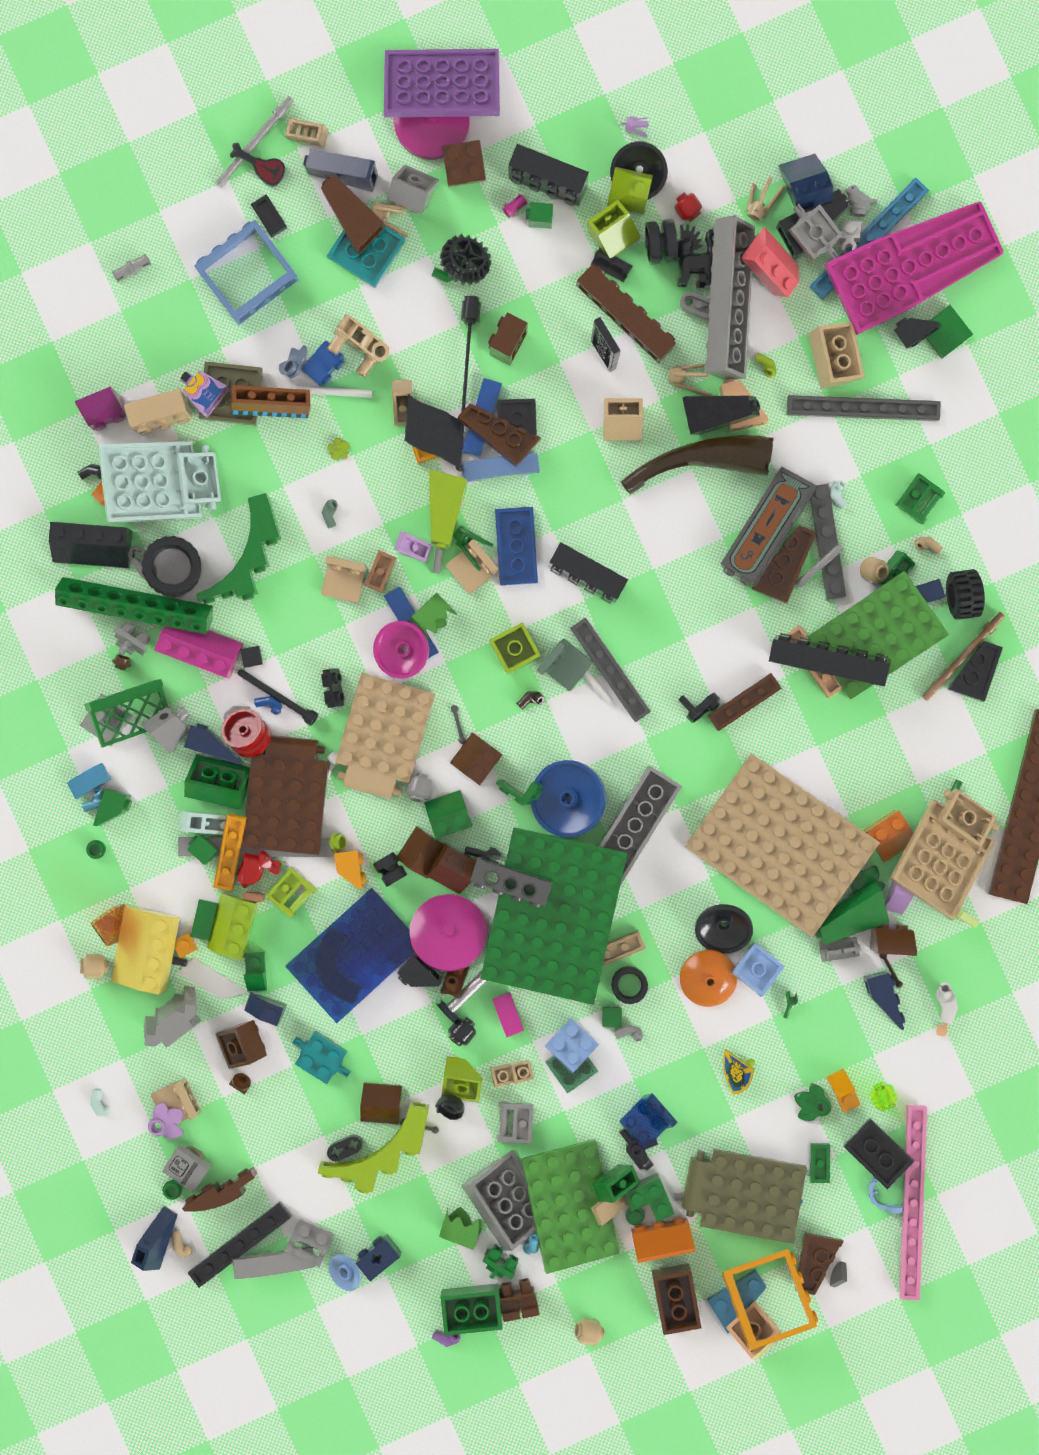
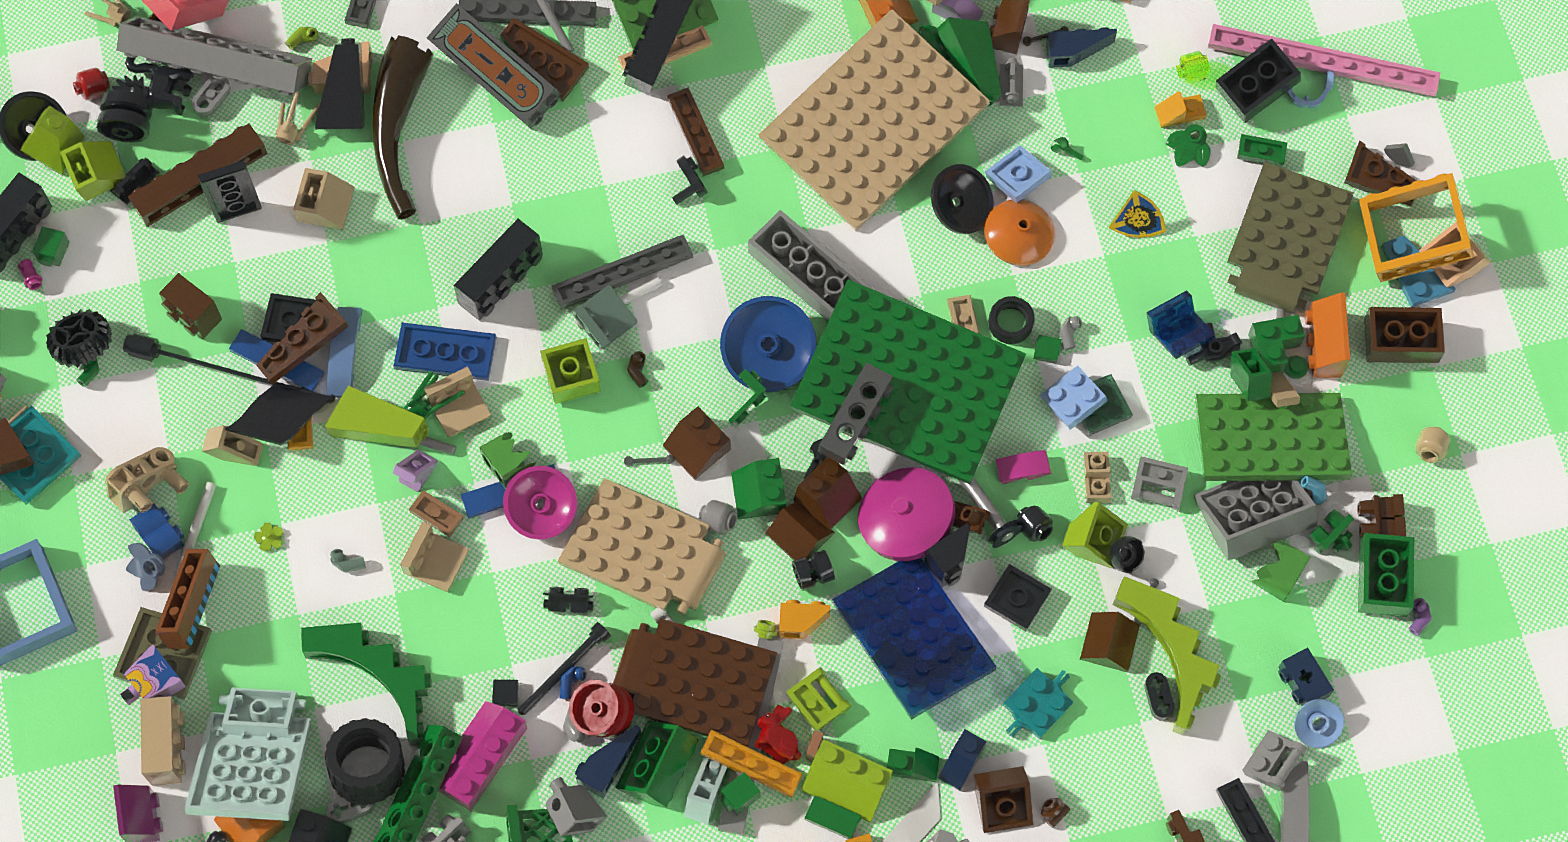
camera: 80 degrees left, 20 degrees down
(400, 1028) = (1017, 597): none -> black plate

